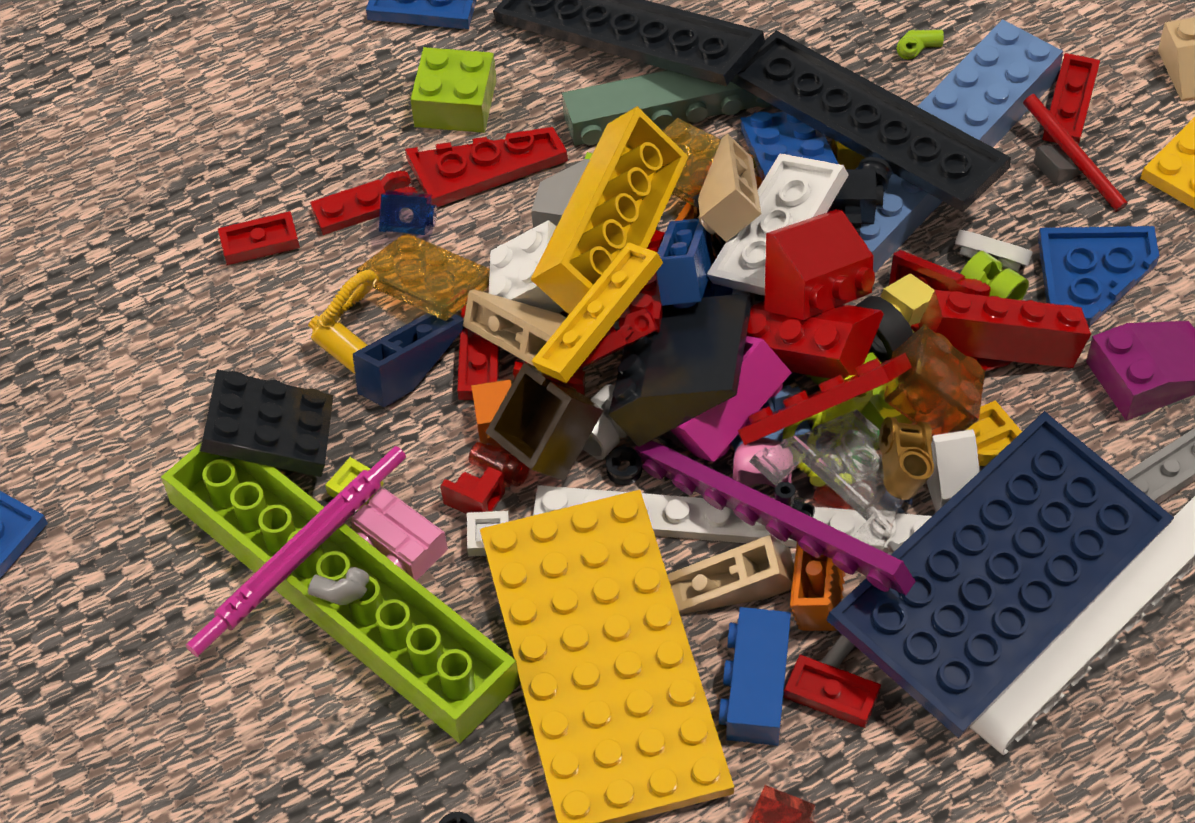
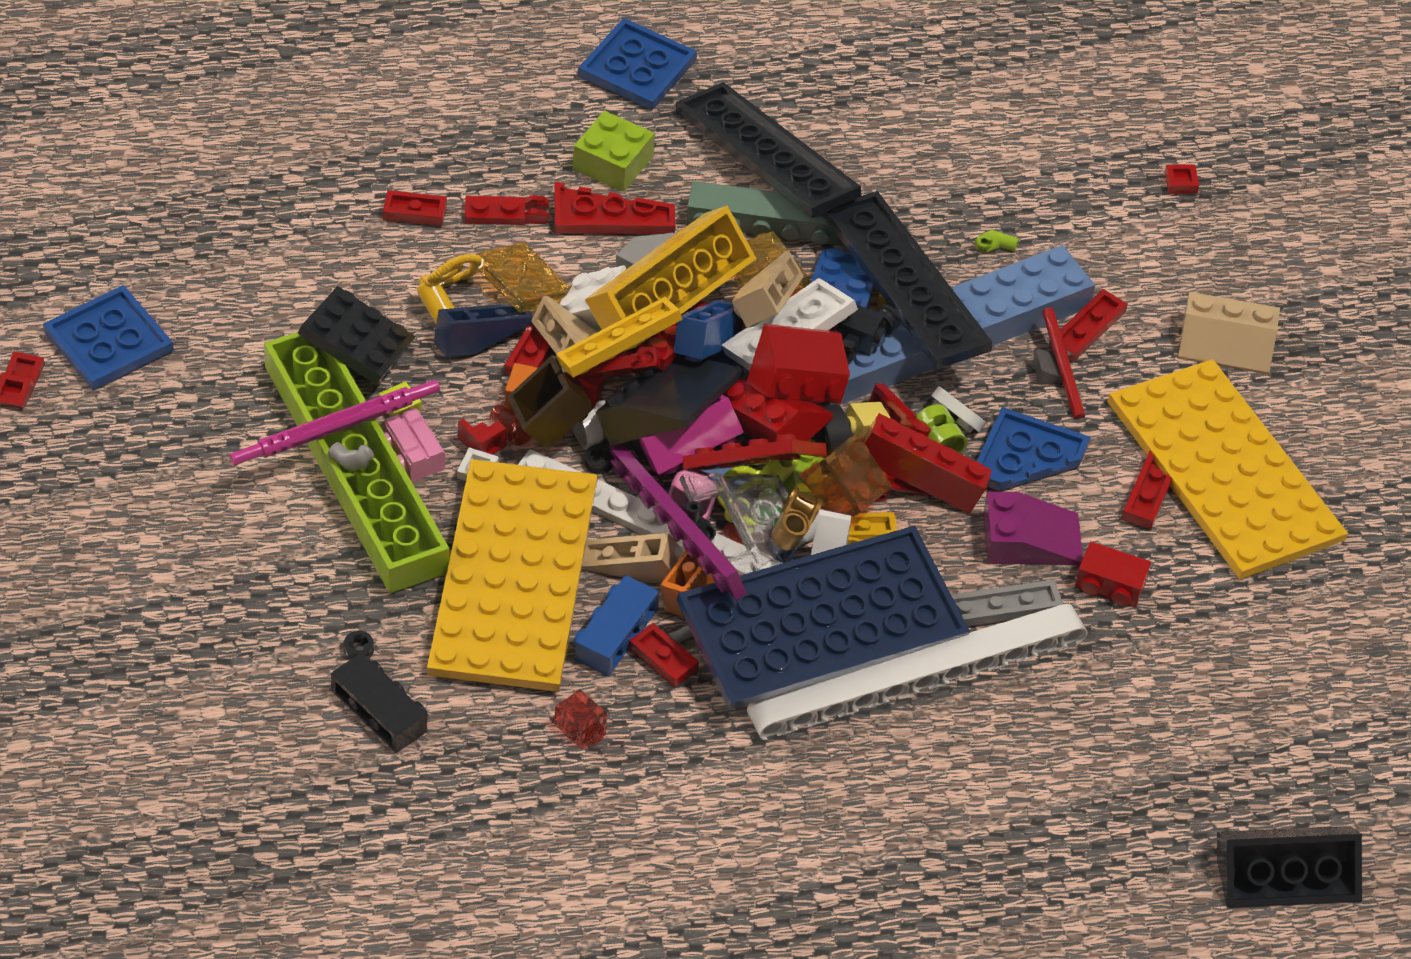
camera: 15 degrees right, 5 degrees down
(420, 204) = (520, 223): clear blue brick -> none

